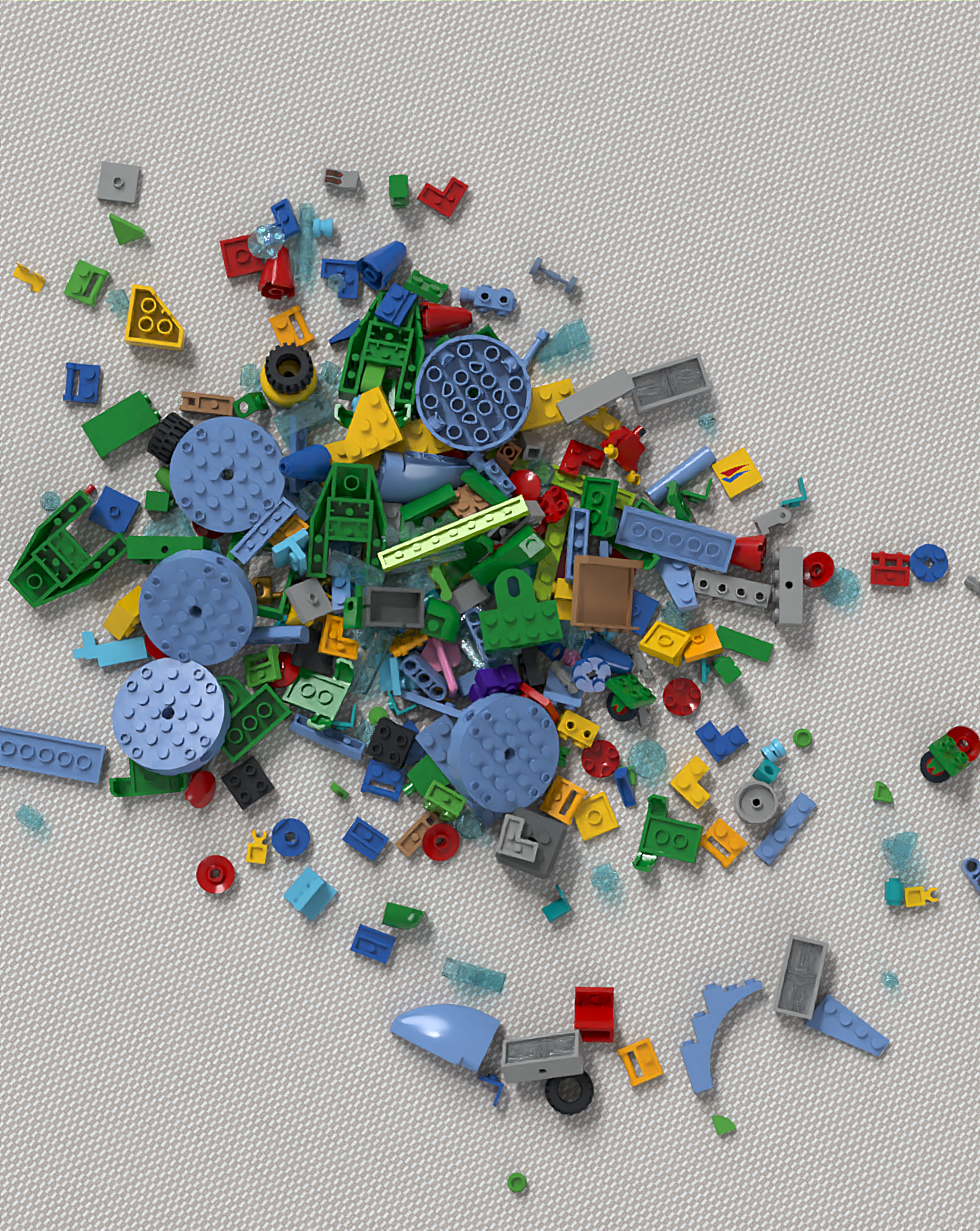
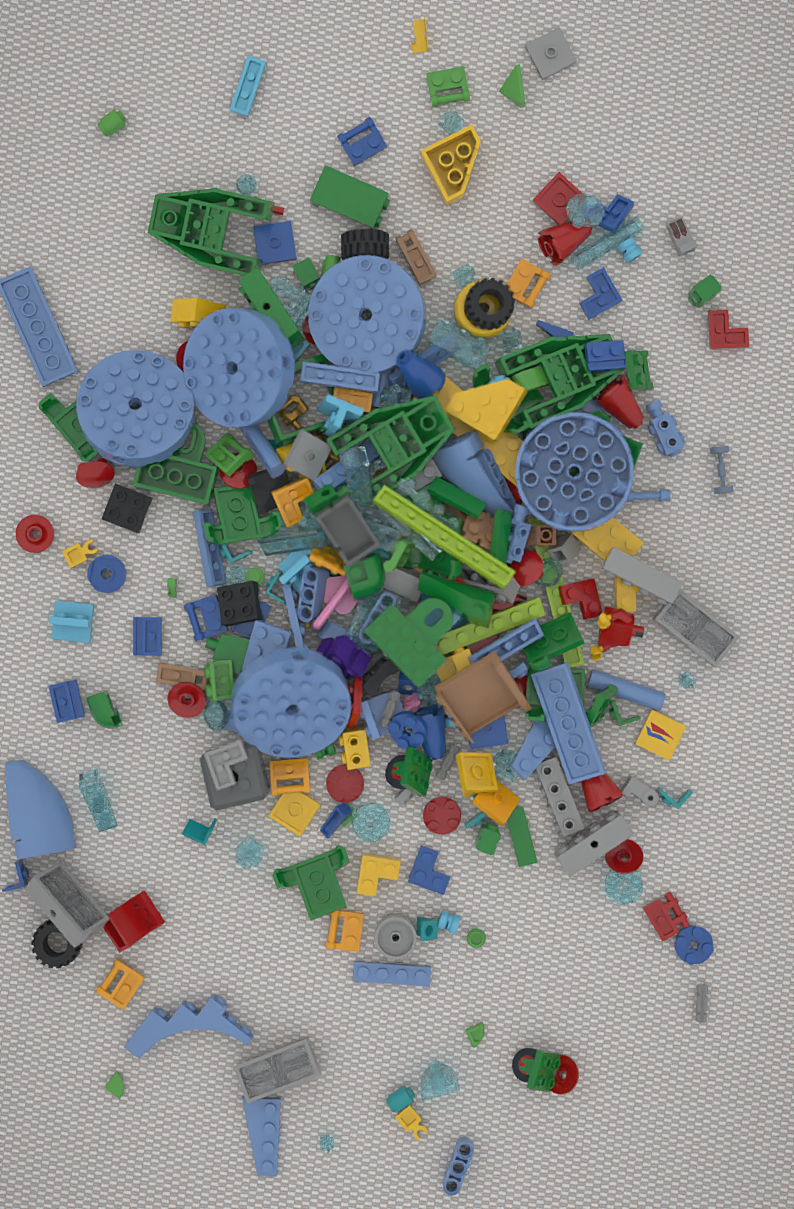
camera: 55 degrees right, 5 degrees up
(111, 652) = (157, 322): medium azure piece -> none
(255, 402) = (444, 296): green bracket -> none
(331, 282) = (593, 288): clear light blue plate -> none
(381, 264) = (632, 320): blue cone -> none
(554, 504) = (527, 603): red dish -> none
(568, 337) = (677, 517): clear light blue slope -> none

